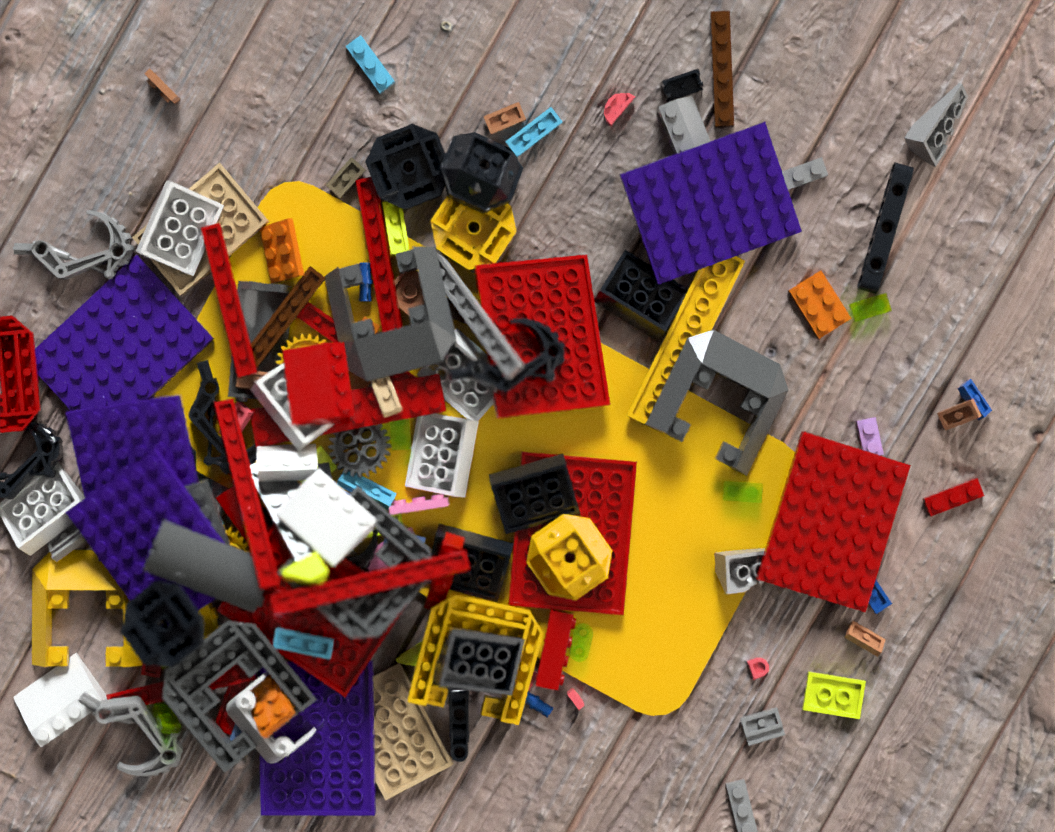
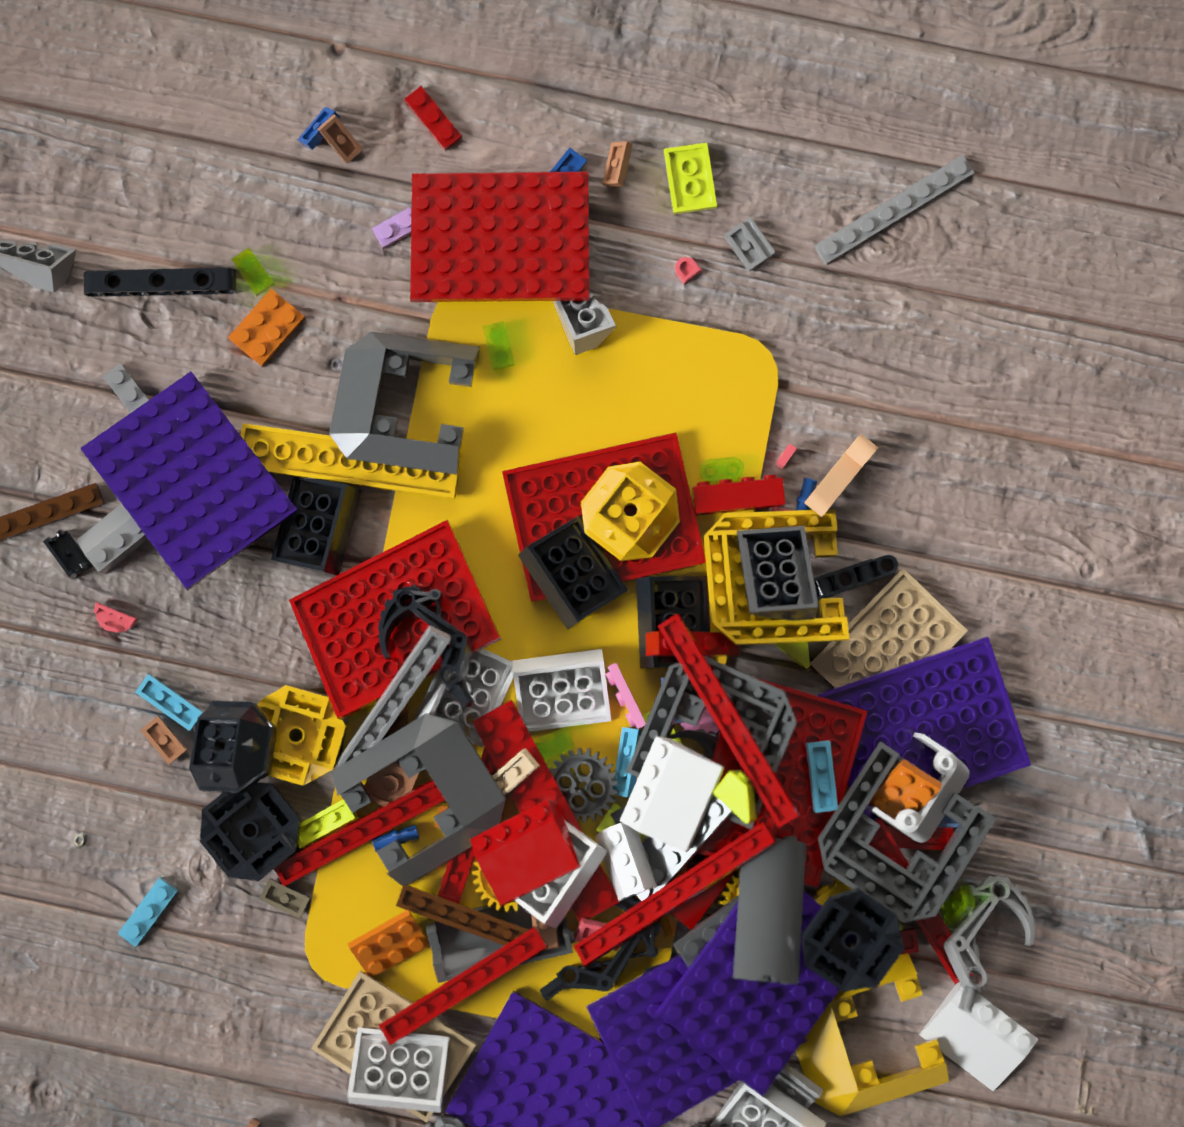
camera: 110 degrees left, 5 degrees down
(545, 739) = (841, 475): none -> light nougat beam

